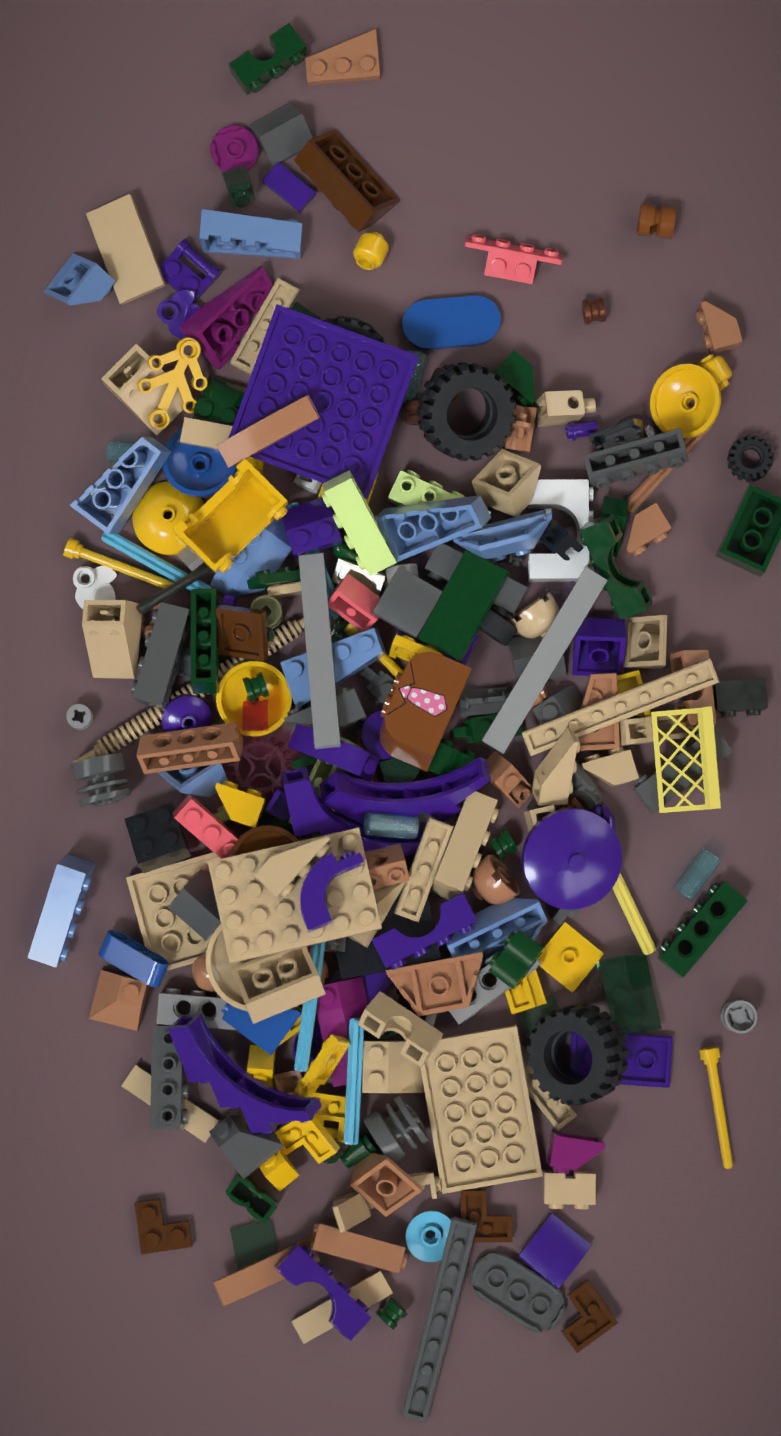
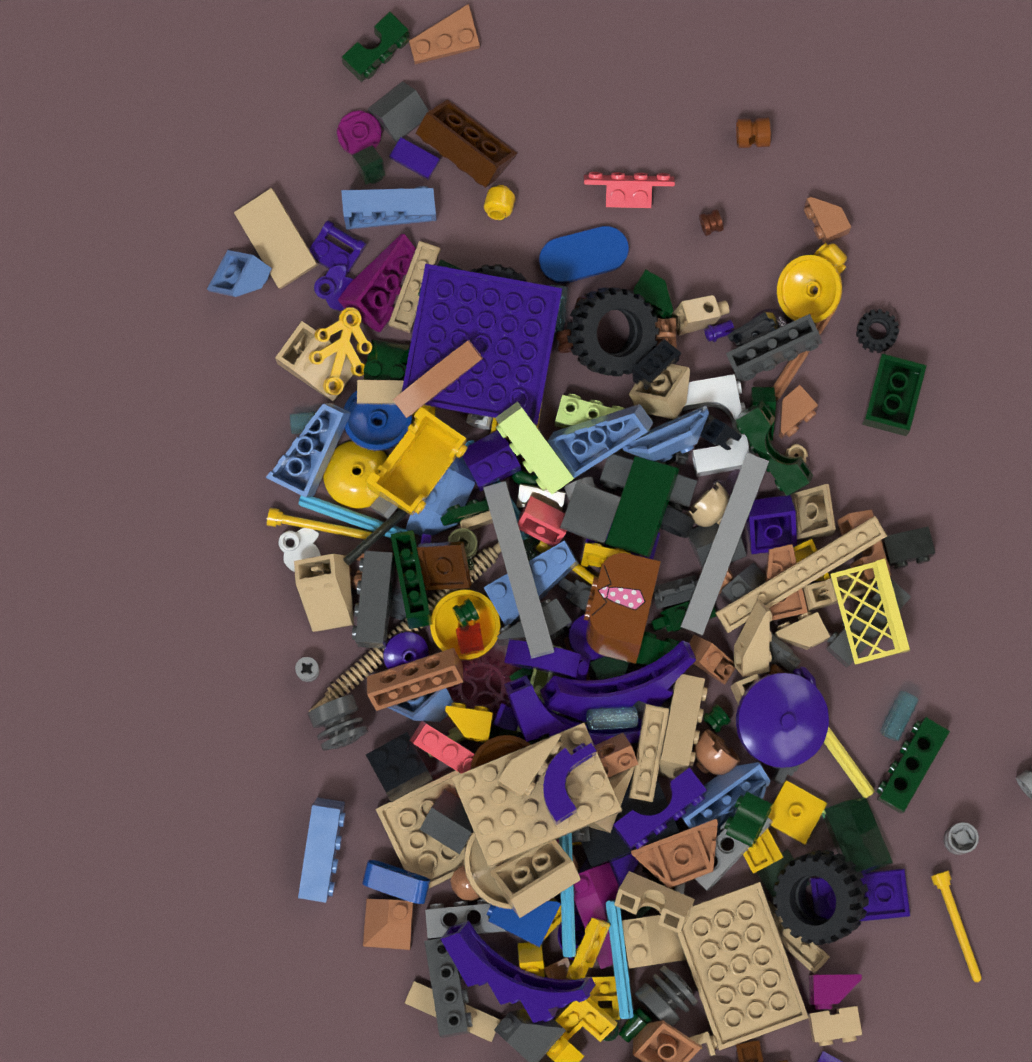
camera: 10 degrees left, 5 degrees down
(505, 454) = (655, 363): none -> black hinge
(642, 571) = (797, 449): none -> tan plate

